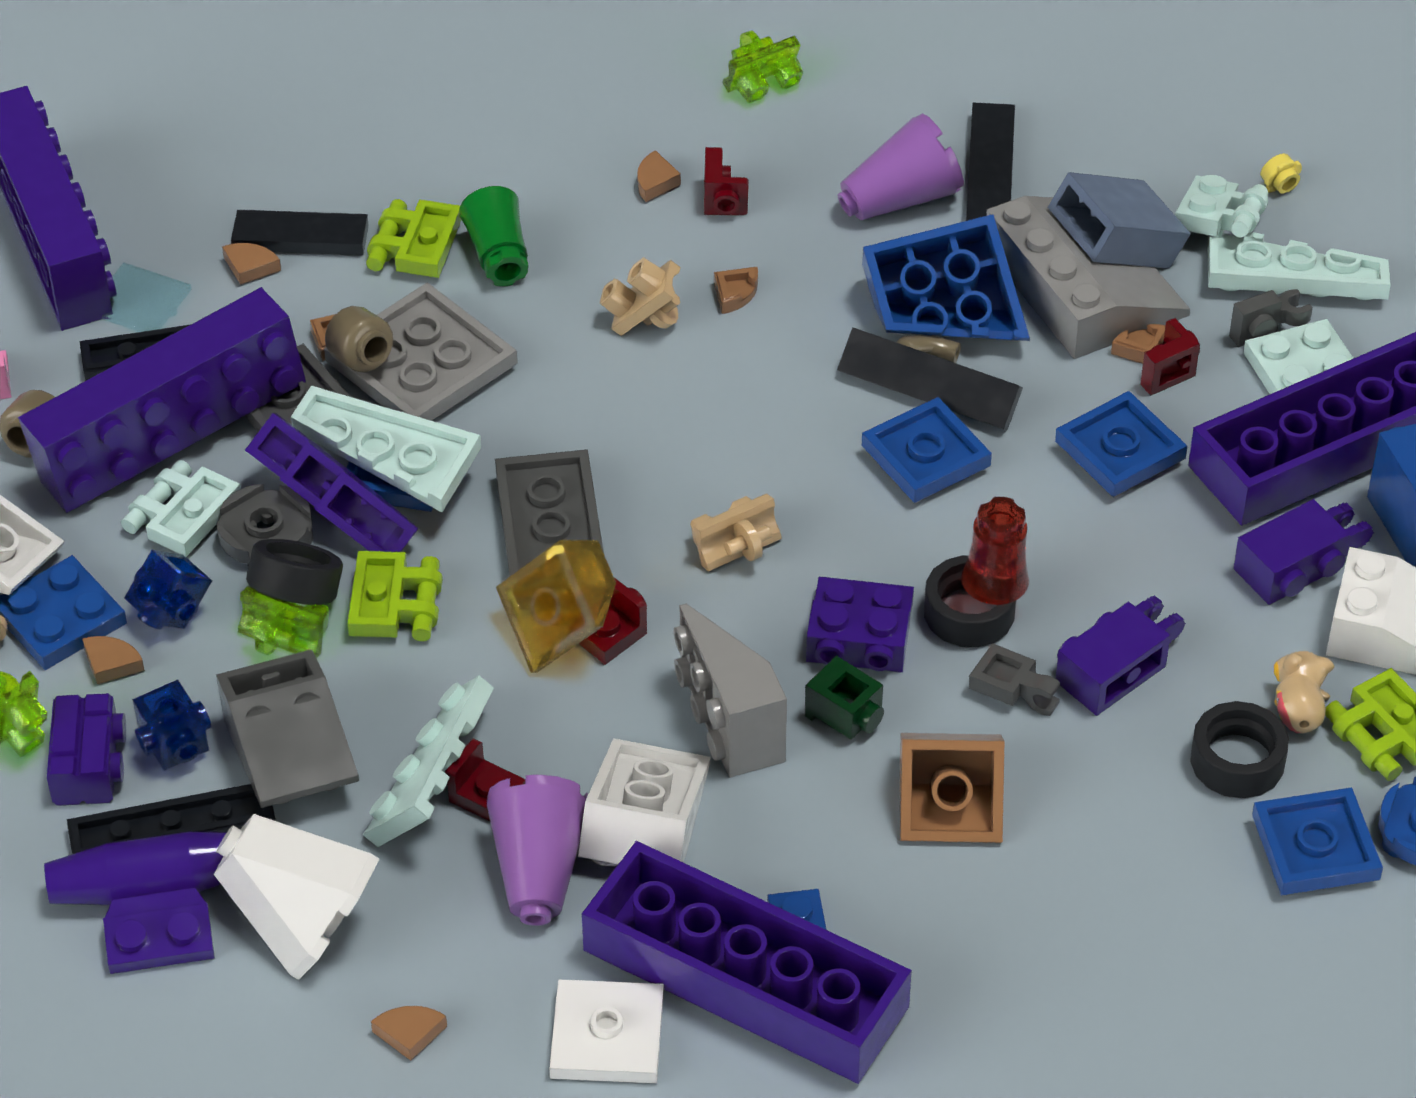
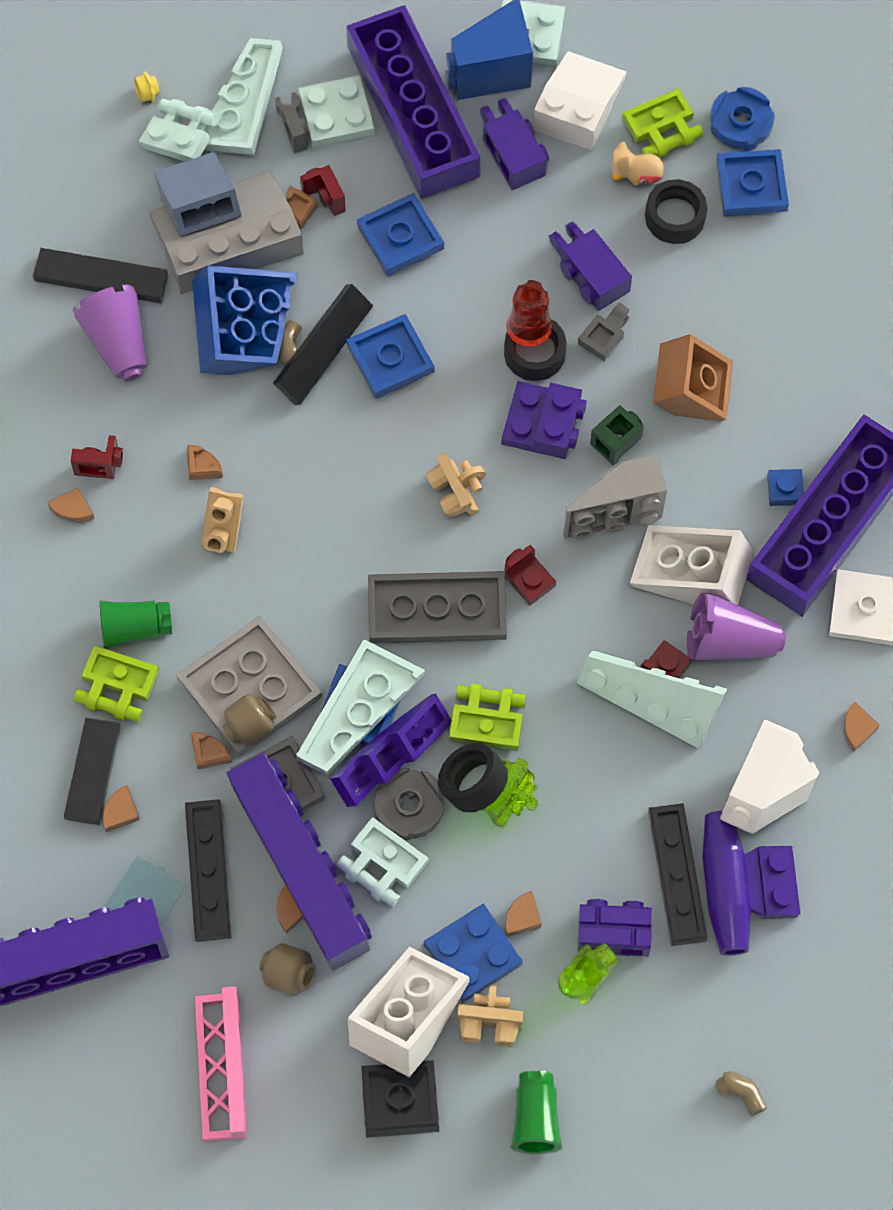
camera: 85 degrees left, 20 degrees up
(167, 590) = (477, 867): clear blue brick -> none
(171, 725) = (605, 866): clear blue brick -> none
(286, 728) = (623, 786): dark grey slope -> none
(558, 599) = (525, 599): clear yellow slope -> none

